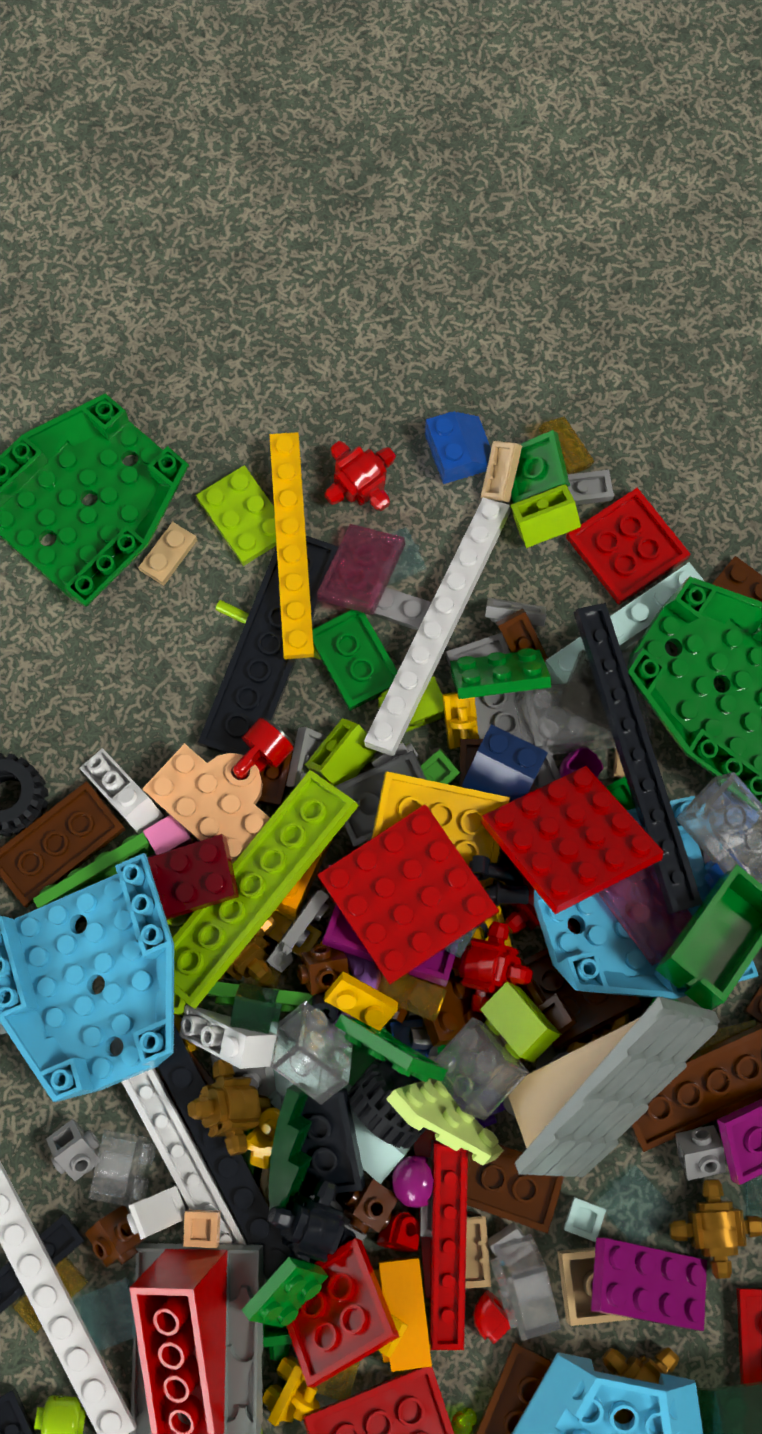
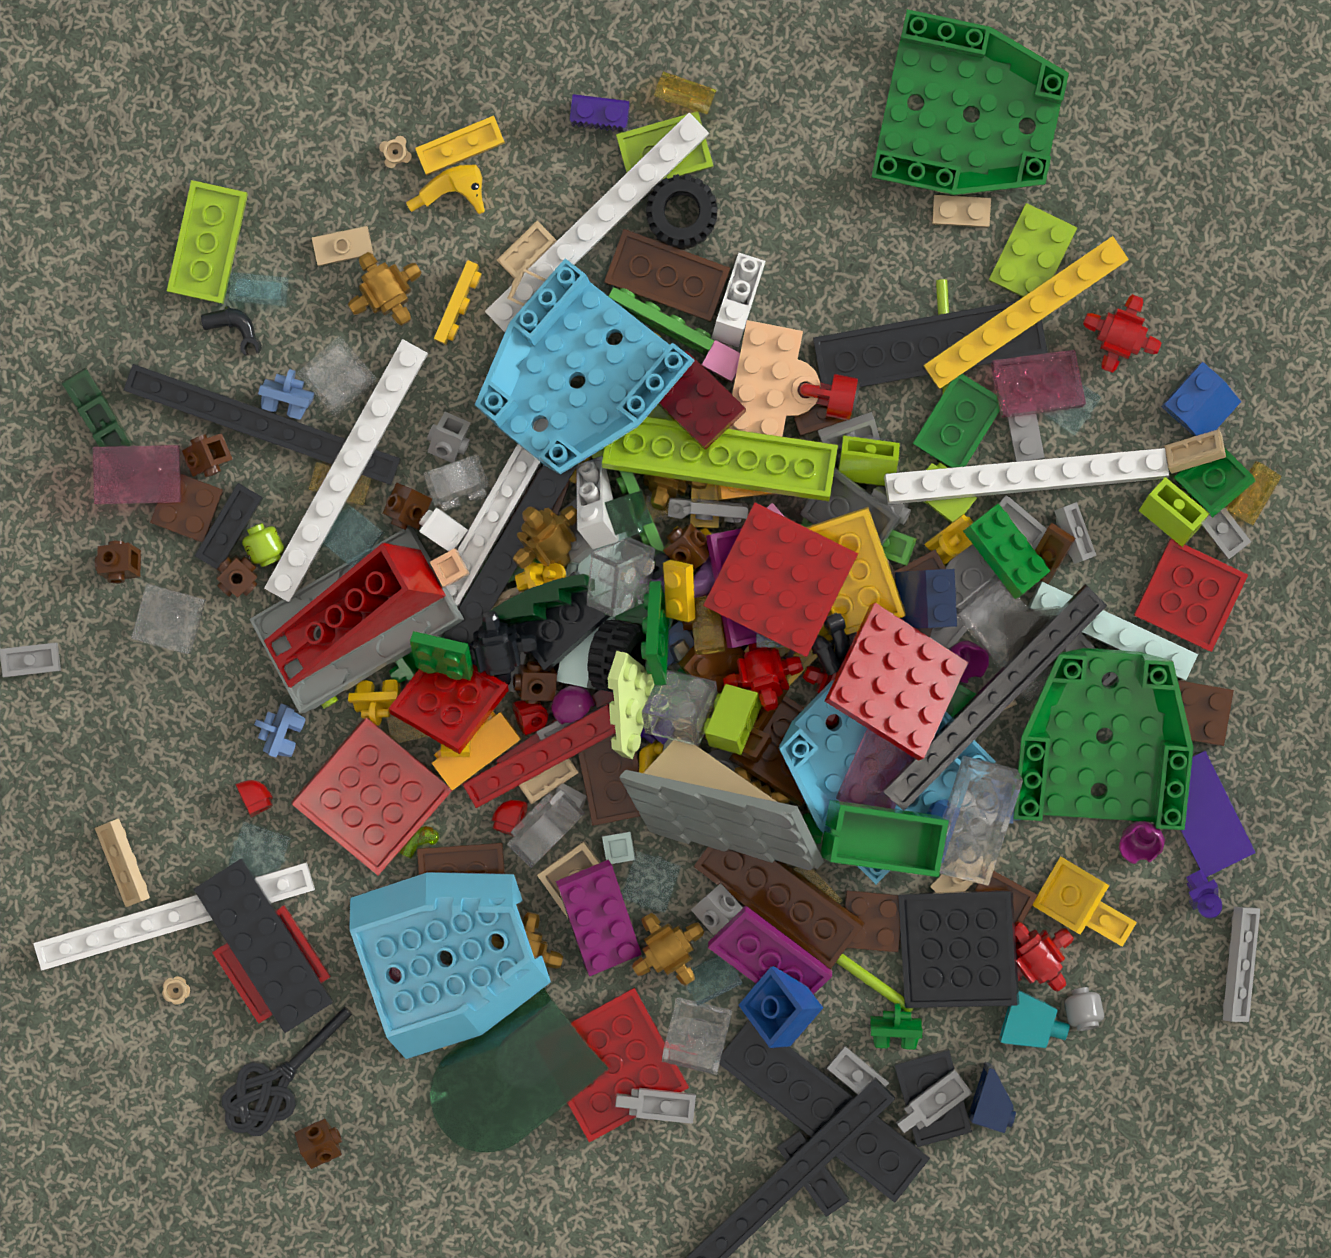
camera: 65 degrees right, 15 degrees up
(506, 1131) = (649, 754): none -> yellow arm

